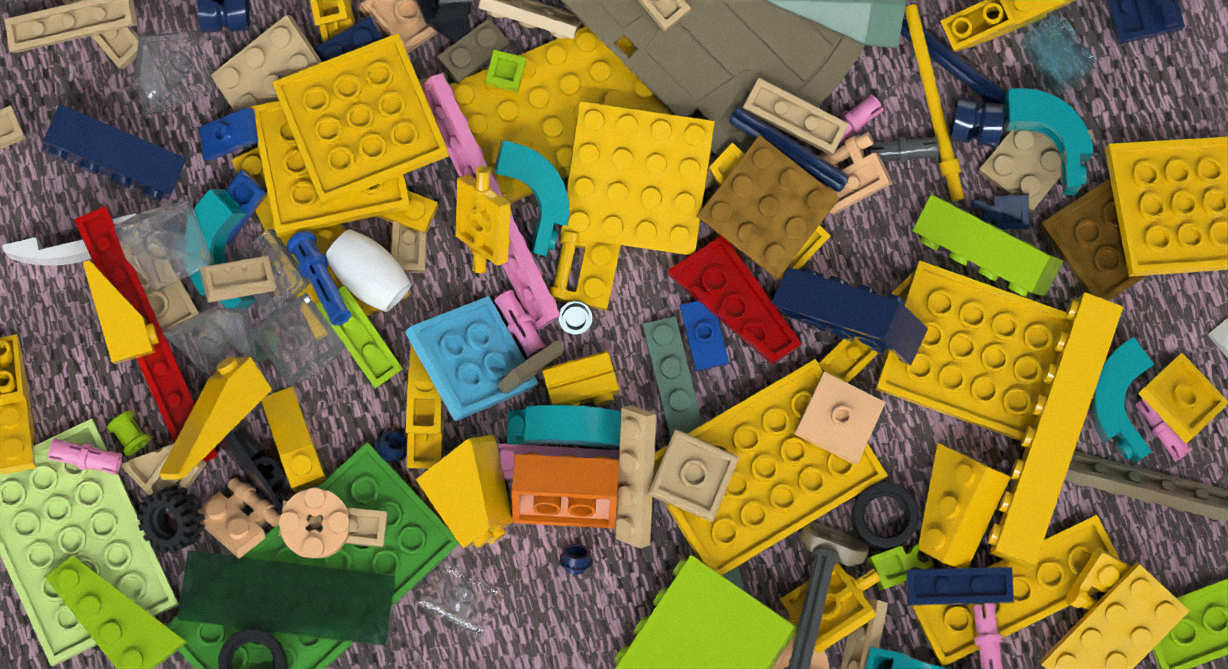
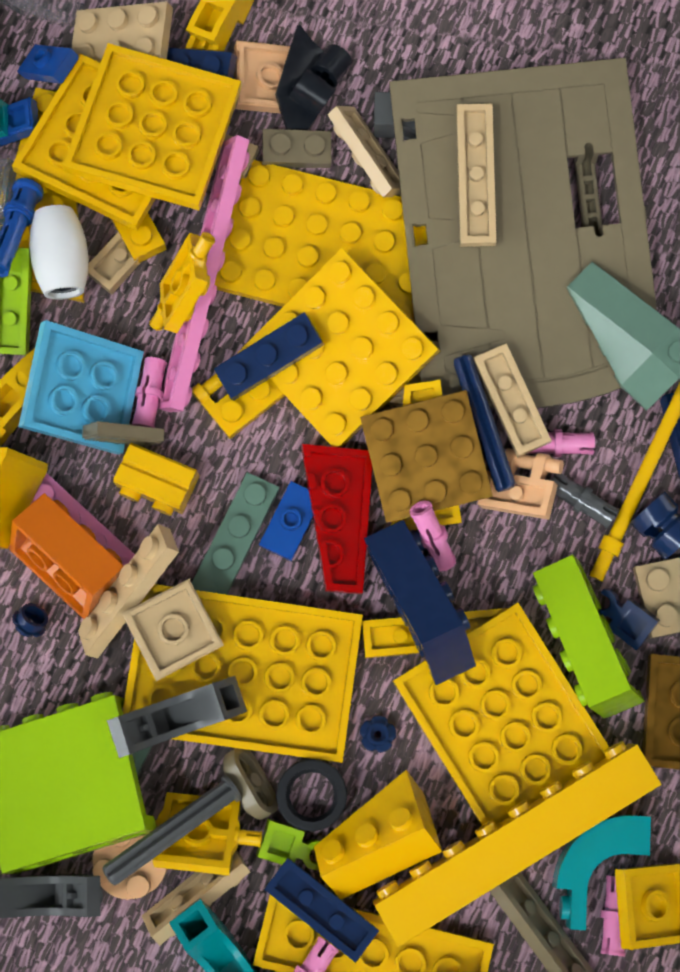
camera: 40 degrees right, 0 degrees up
(506, 71) = (305, 180): lime plate -> none
(546, 184) = (260, 293): teal arch -> none
(565, 425) = (108, 503): teal arch -> none
(575, 317) = (197, 423): plate -> none
(591, 224) = (269, 356): none -> dark blue plate
(751, 529) = (176, 716): none -> dark grey arch
(806, 253) = (433, 535): none -> bright pink pin
(839, 418) = (340, 681): light nougat plate -> none
(886, 440) = (380, 724): none -> dark blue plate

